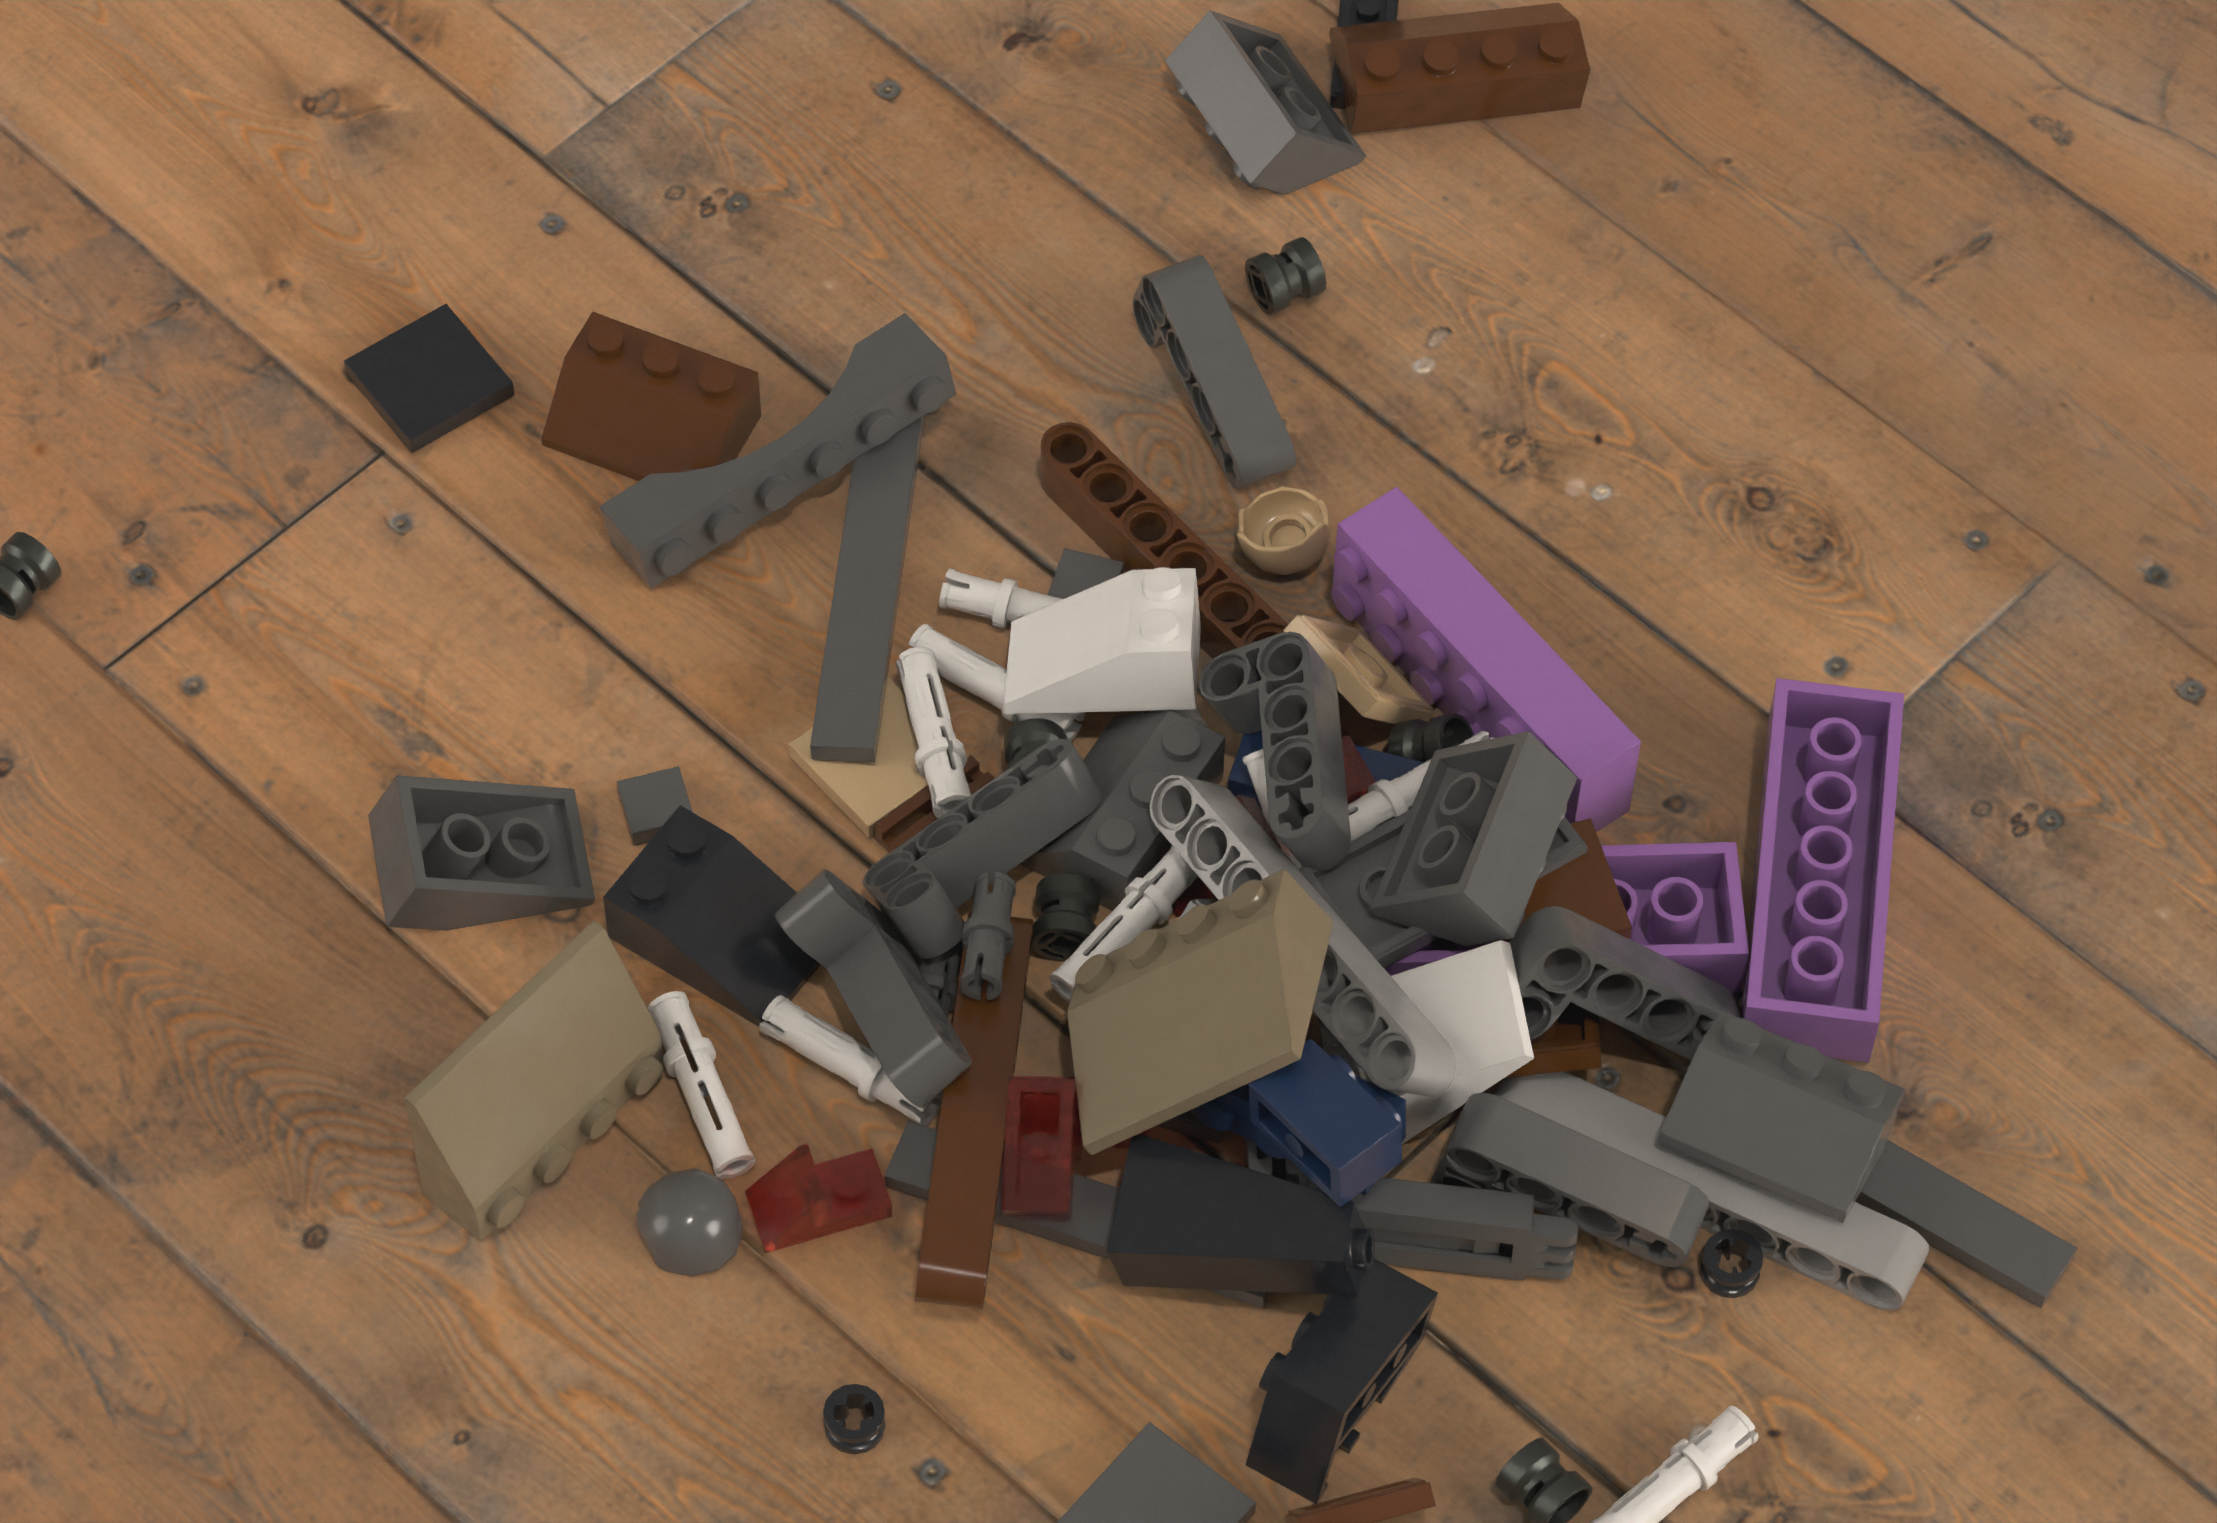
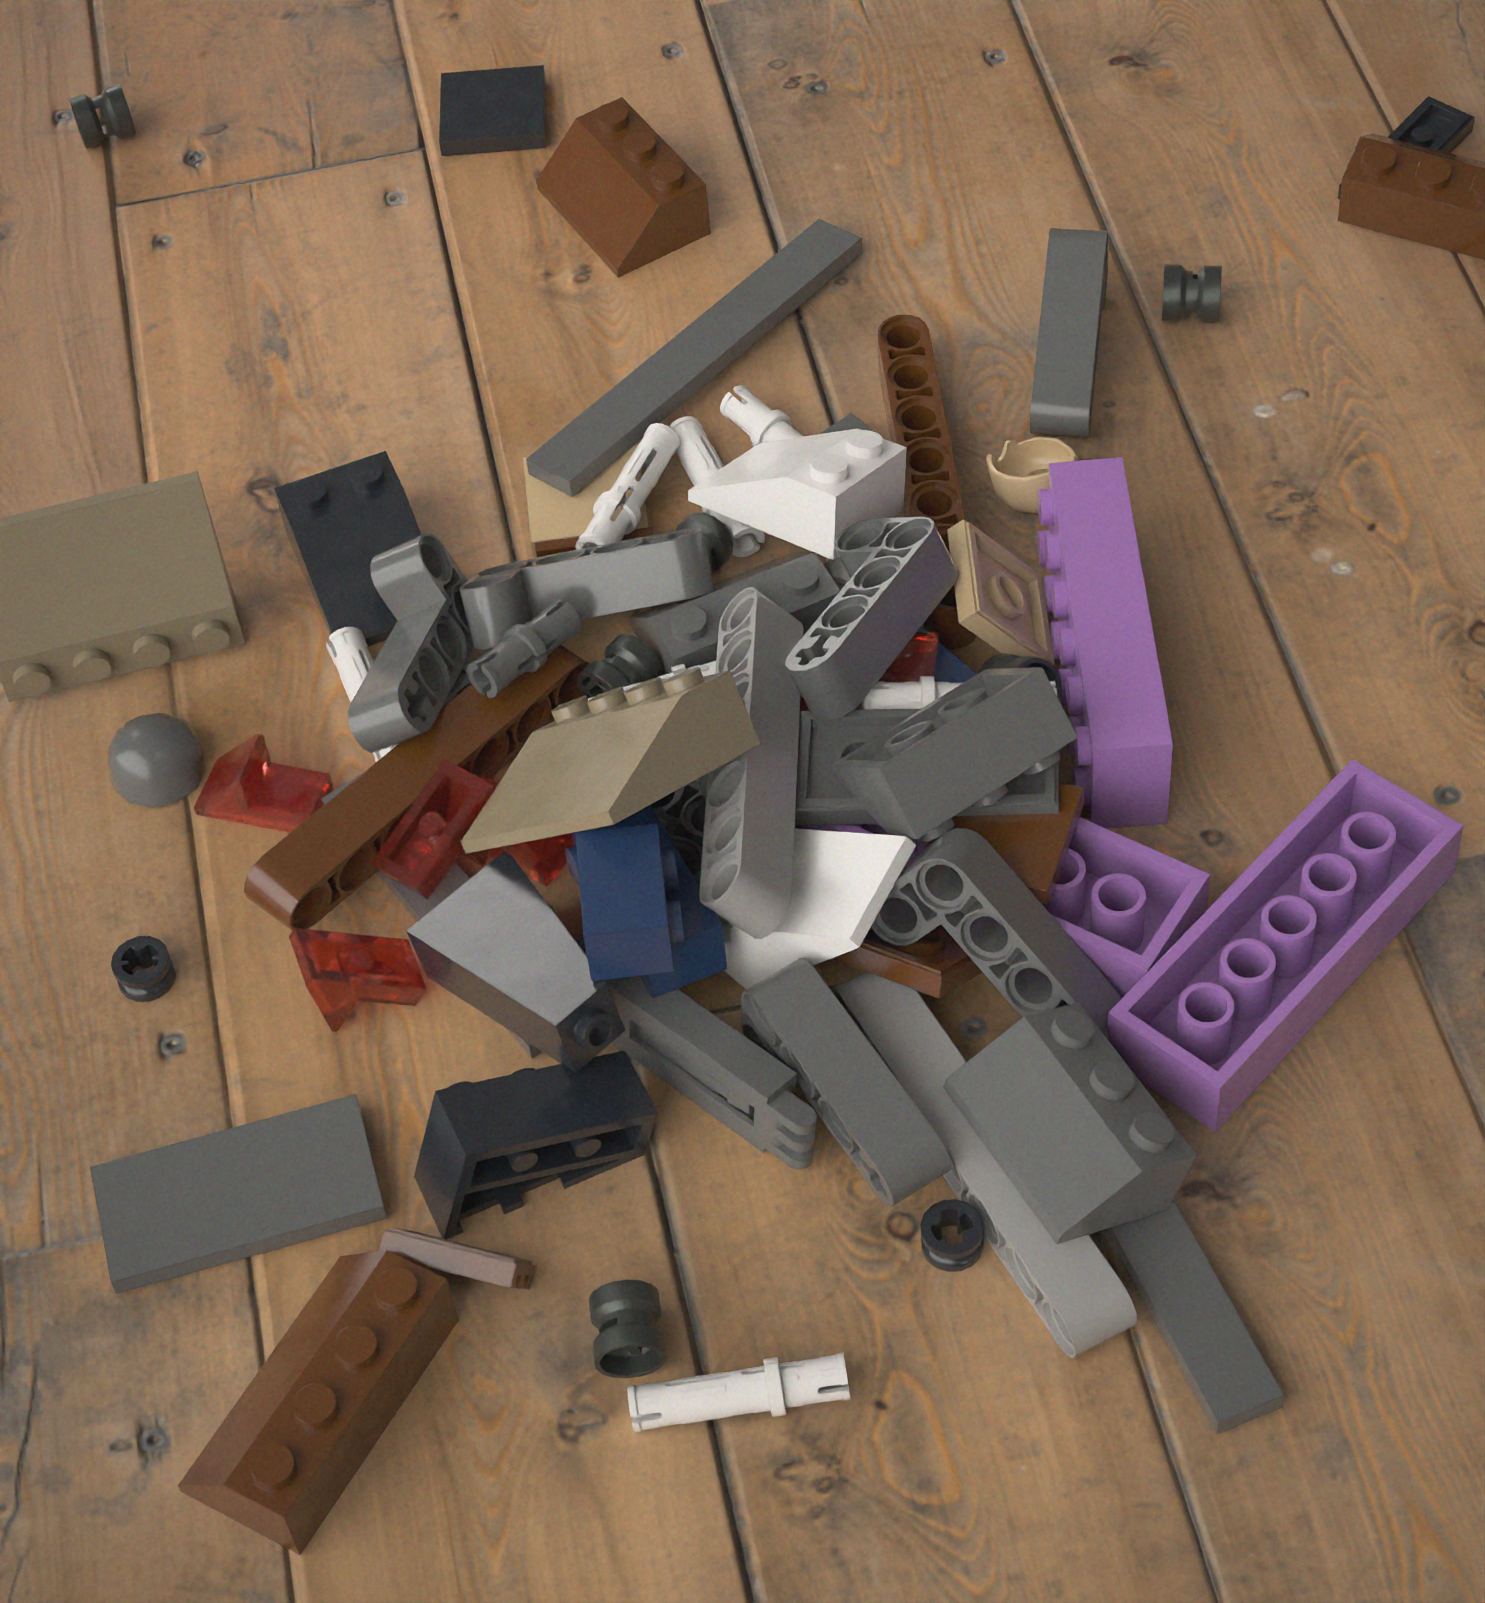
camera: 40 degrees right, 5 degrees down
(477, 852) = (234, 425): dark grey slope -> none
(651, 801) = (405, 450): dark grey tile -> none
(676, 1023) = (255, 646): white pin -> none
(684, 515) = (585, 265): dark grey arch -> none
(1063, 1315) = (356, 968): none -> clear red slope
(1261, 105) = (1274, 167): dark grey slope -> none

